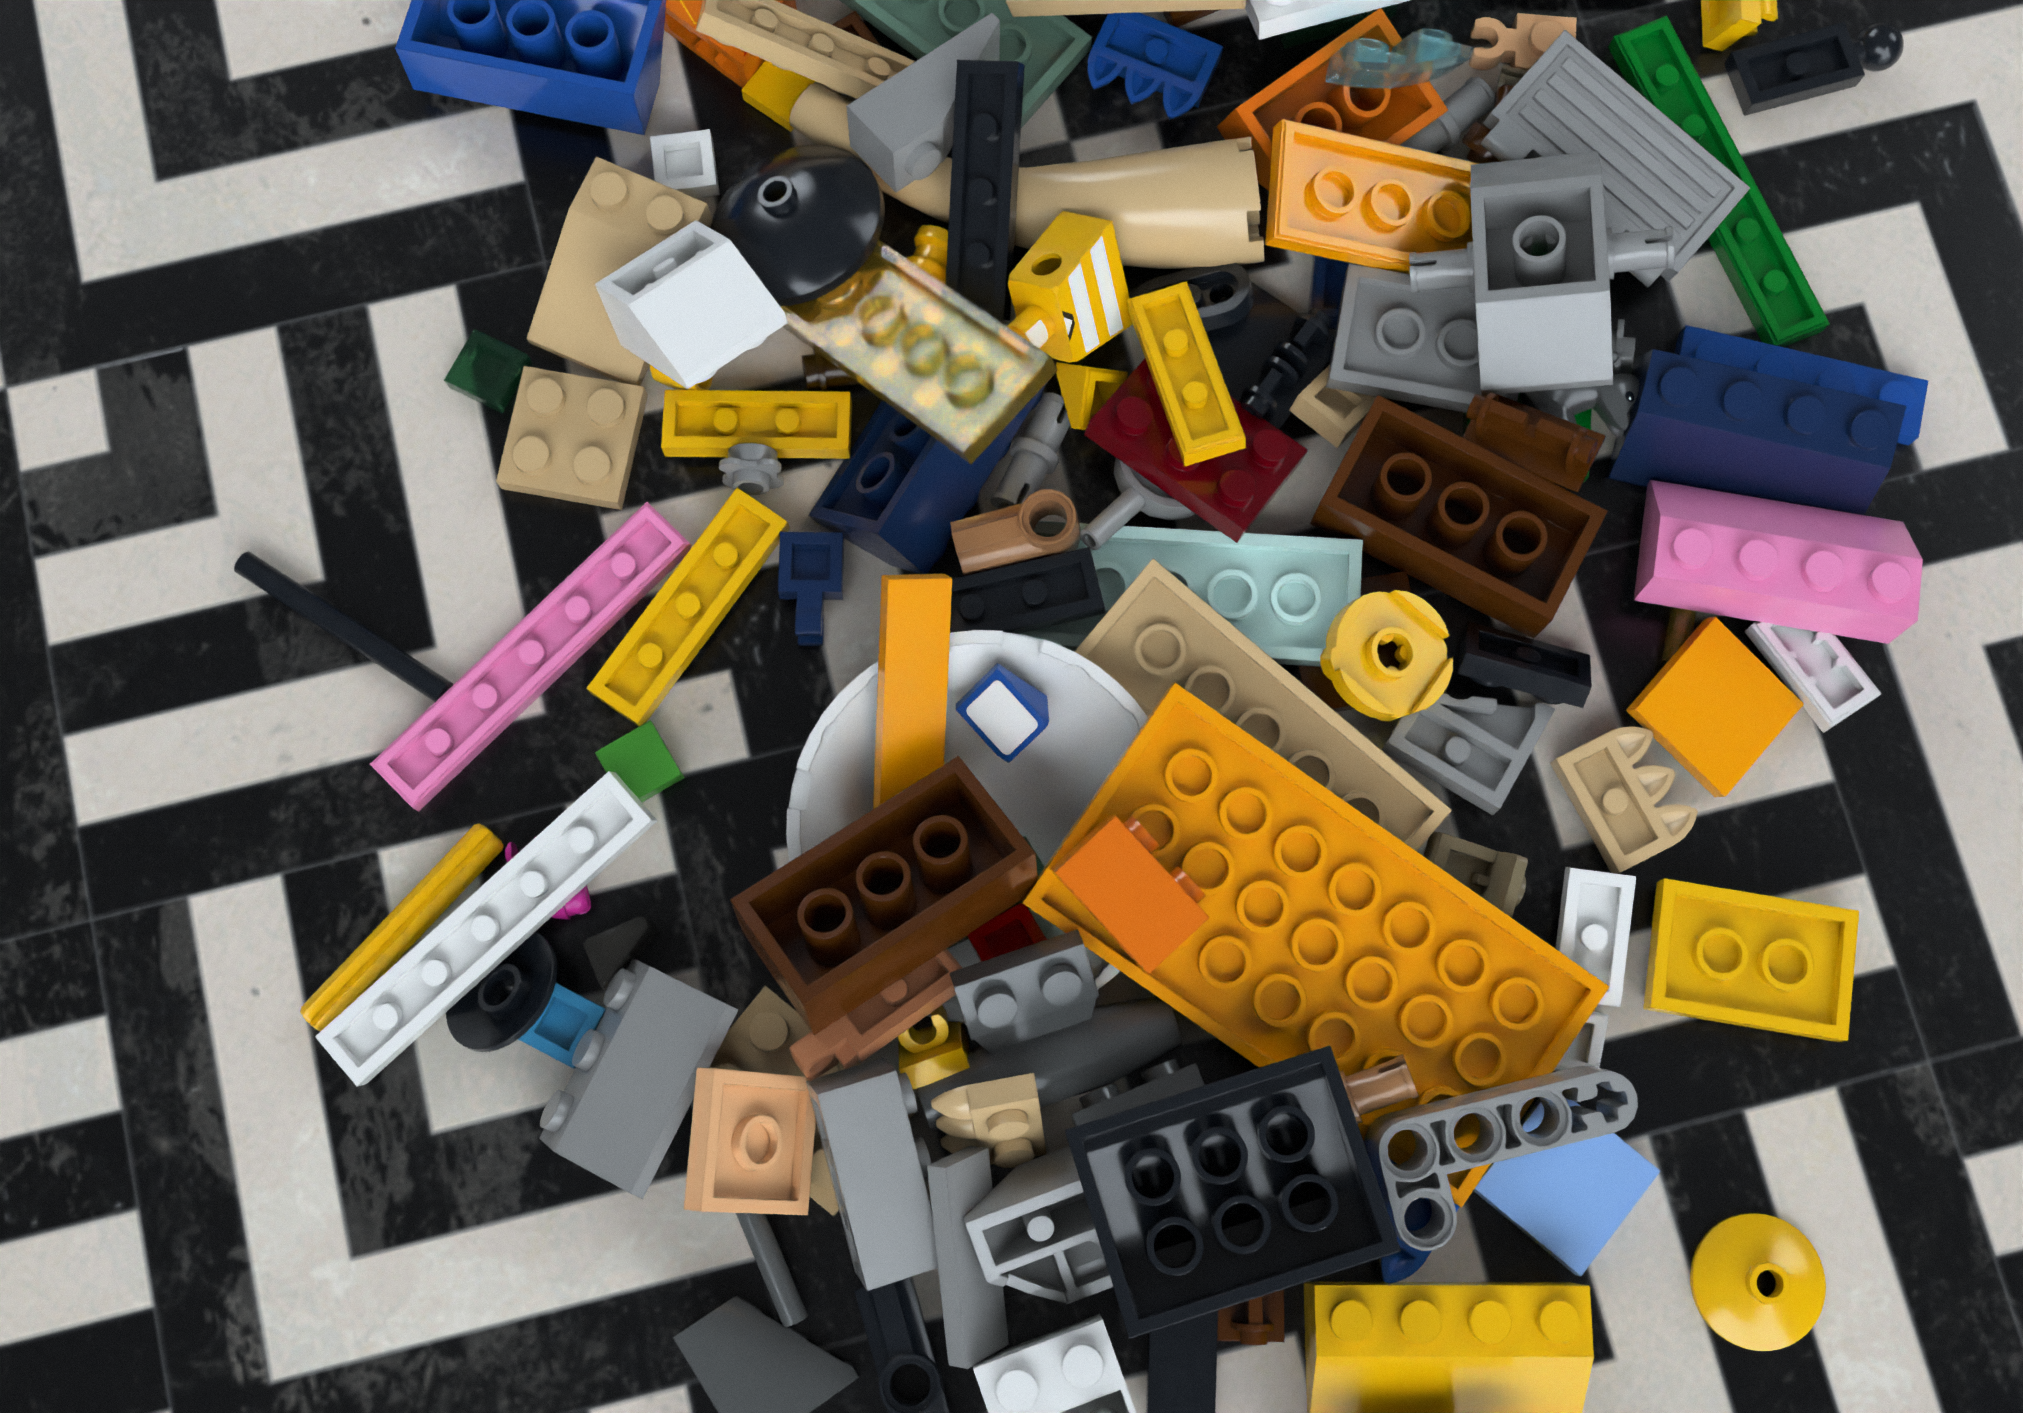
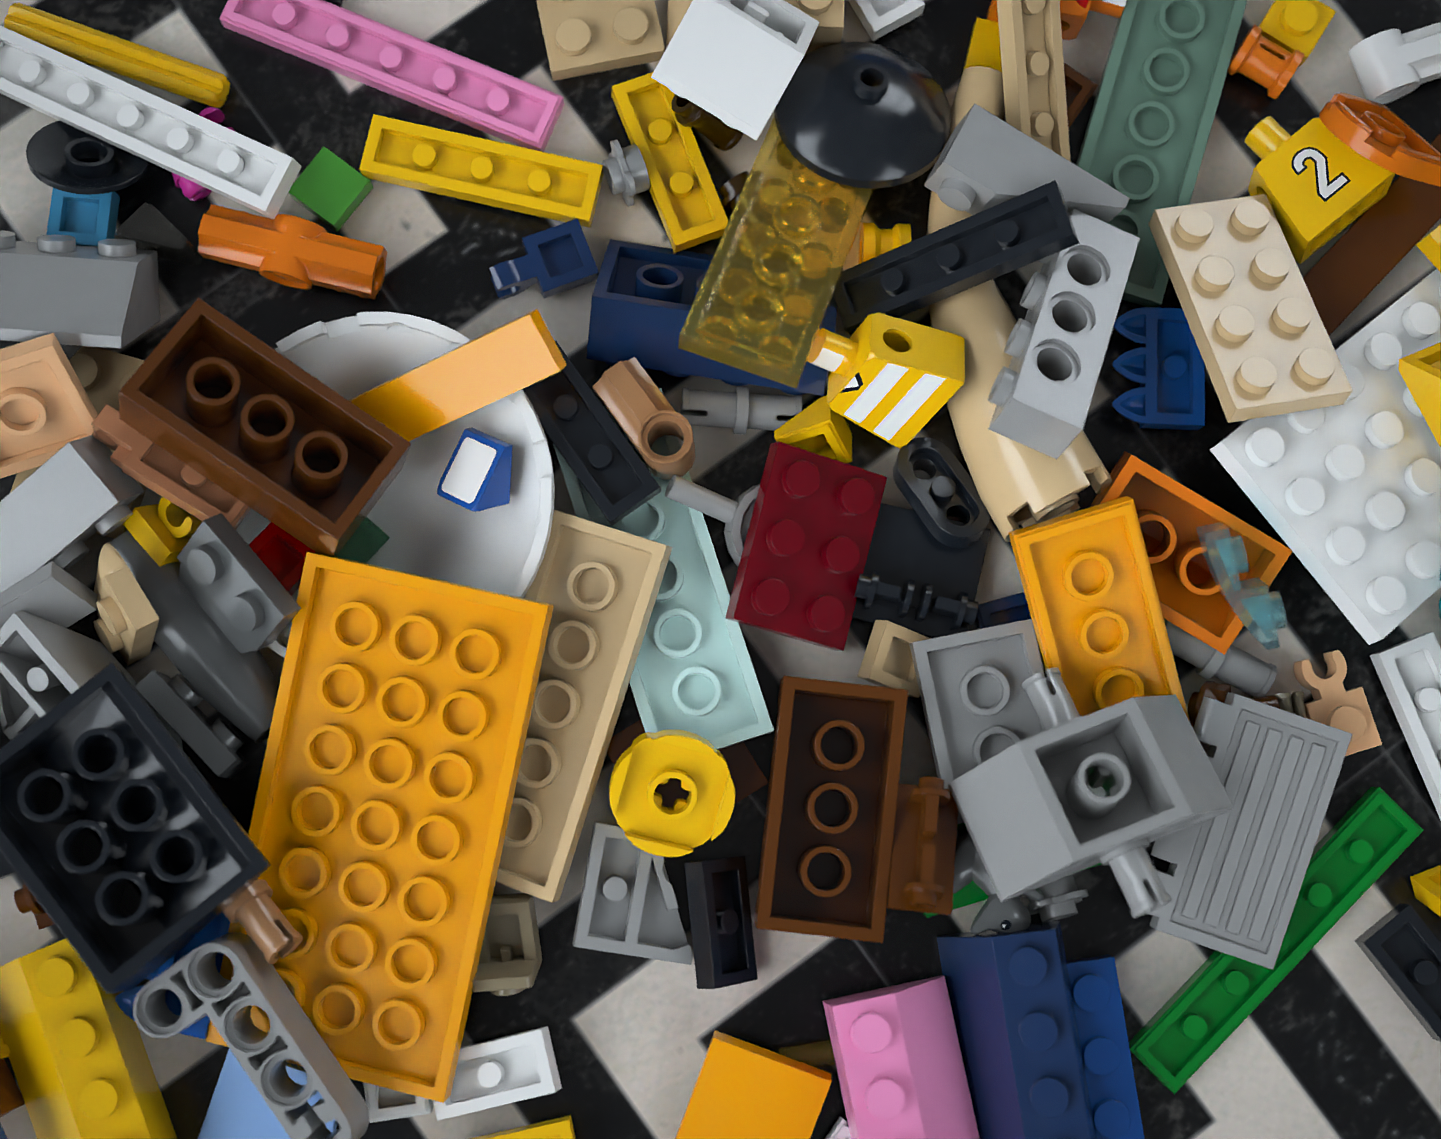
camera: 60 degrees right, 5 degrees up
(692, 823) = (292, 251): none -> orange piece
(740, 371) = (710, 126): none -> dark brown pin
(1110, 120) = (1063, 338): none -> light grey brick
(1131, 891) = (342, 639): orange brick -> none
(1186, 374) = (858, 509): yellow tile -> none
(1620, 800) = (629, 1054): tan plate -> none

